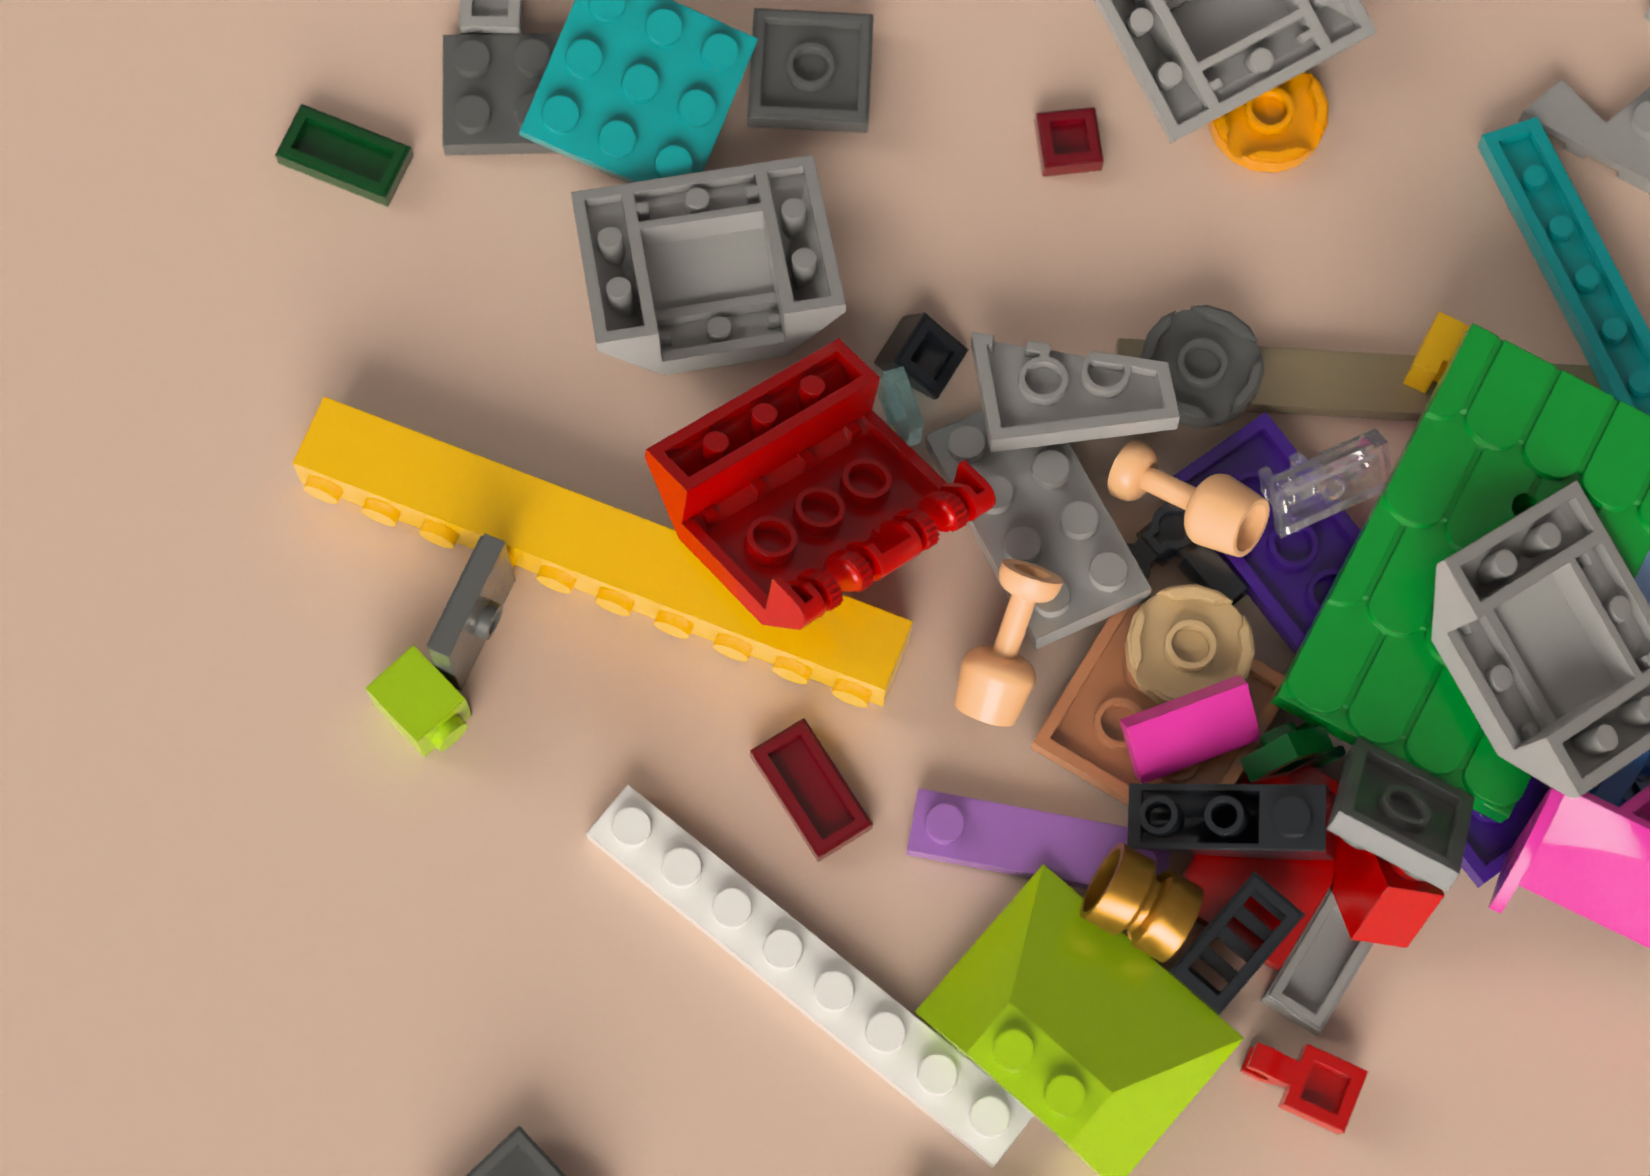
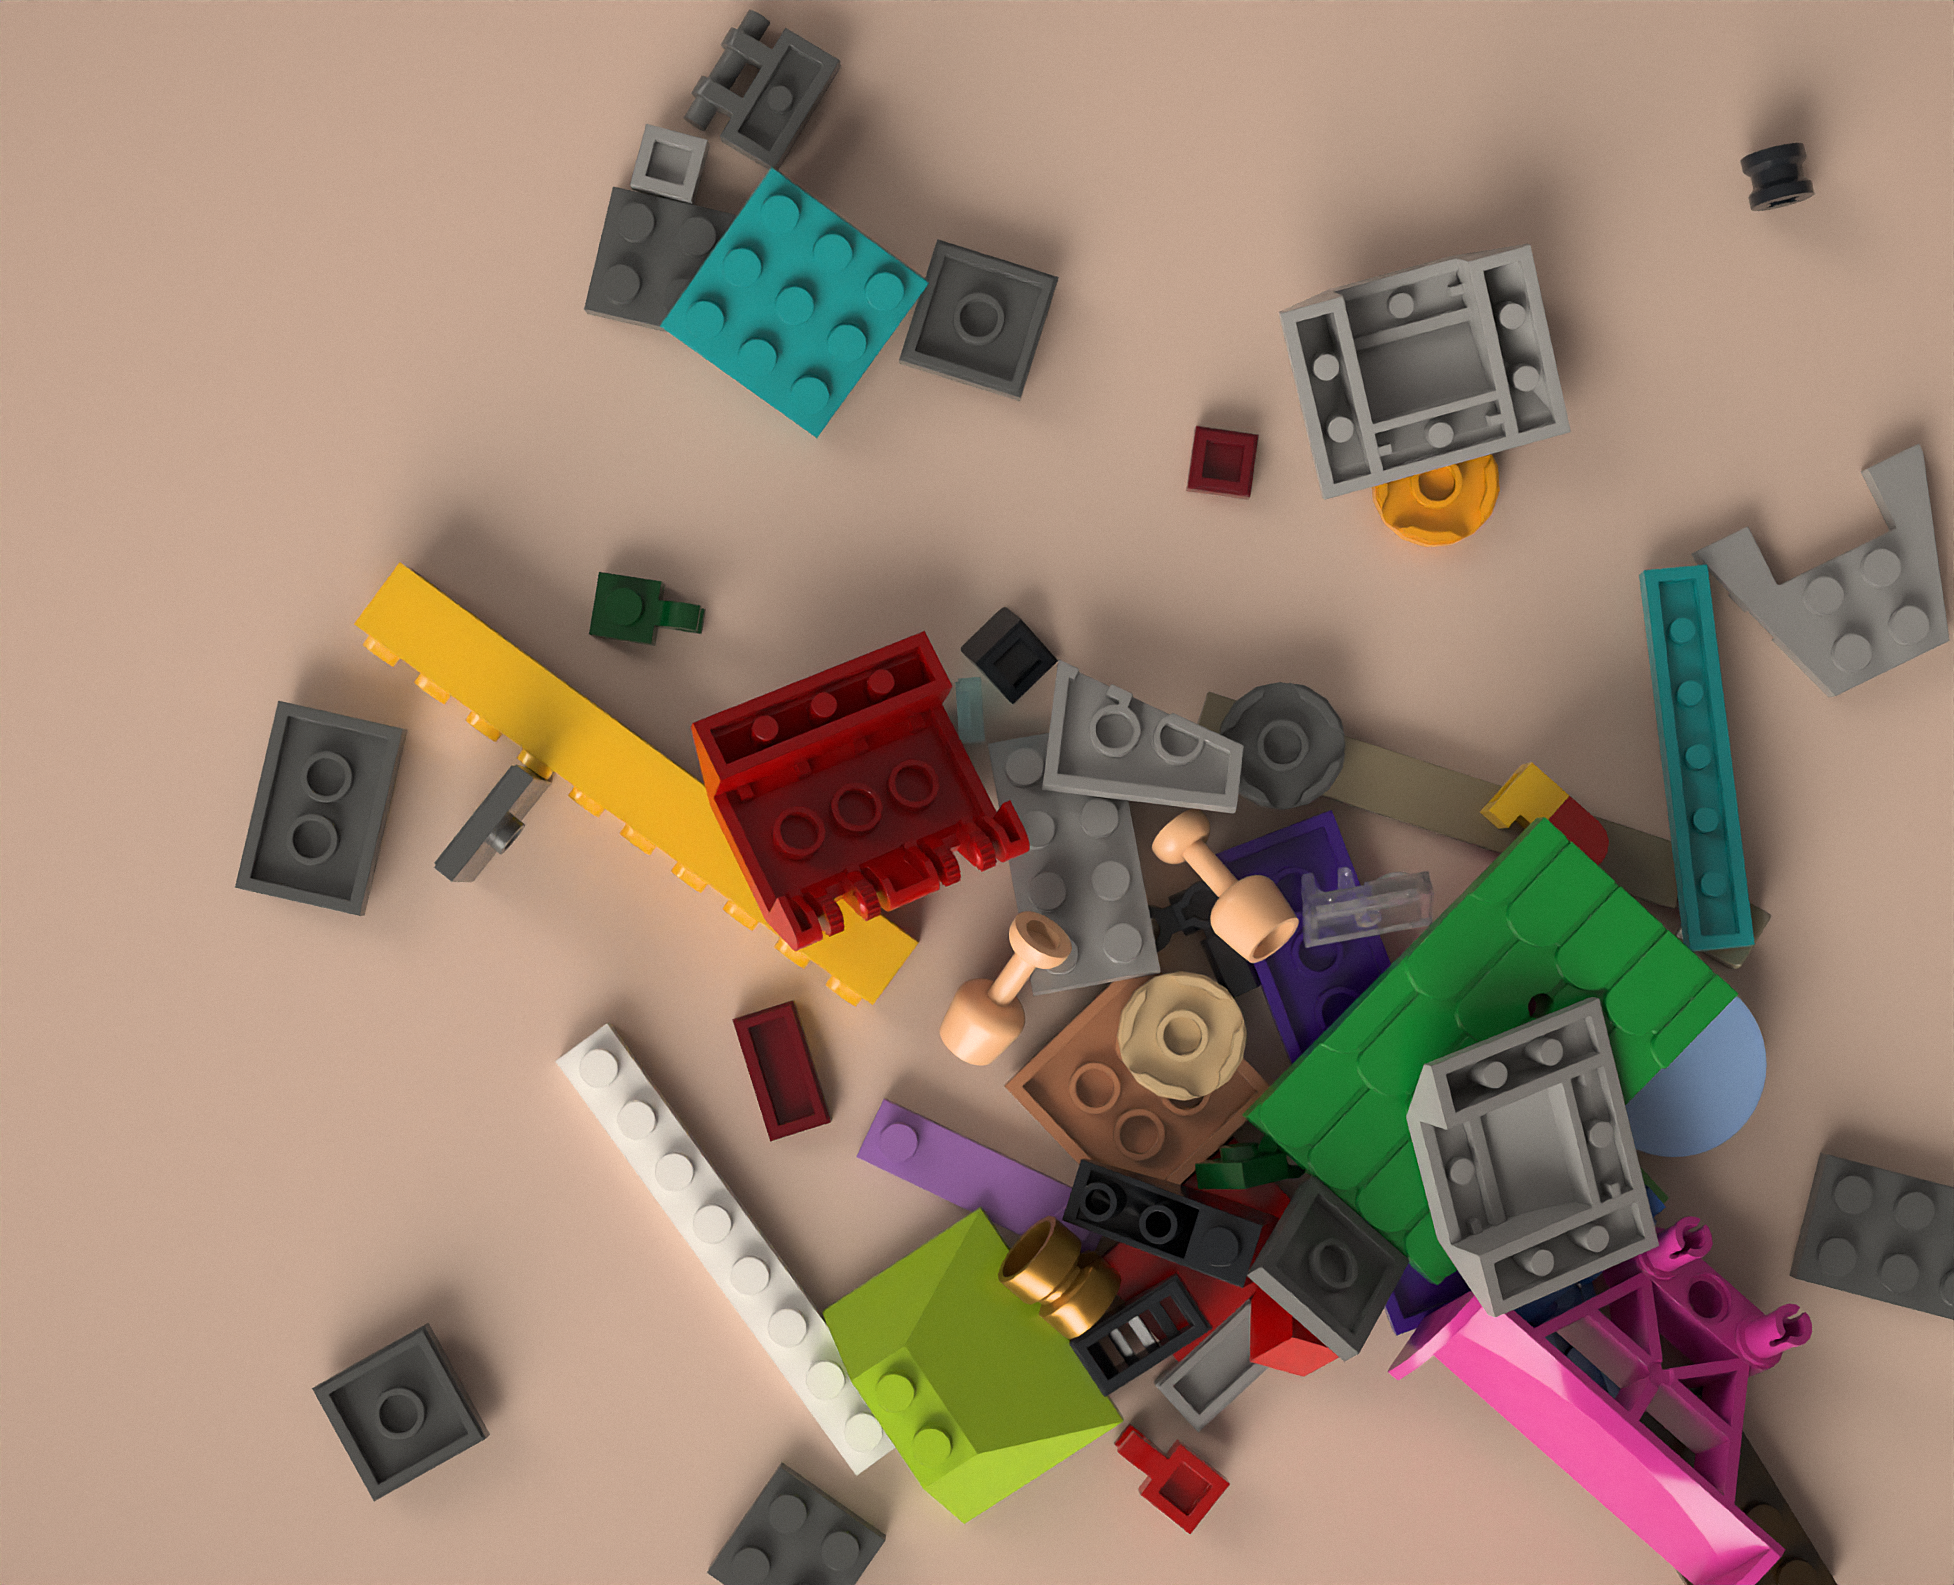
camera: 15 degrees right, 15 degrees up
(297, 651) = (321, 808): none -> dark grey plate
(344, 155) = (484, 291): dark green tile -> none
(420, 702) = (423, 896): lime brick -> none
(555, 398) = (635, 609): none -> dark green plate
(709, 265) = (815, 514): light grey slope -> none
(1190, 729) = (1156, 1121): dark pink tile -> none

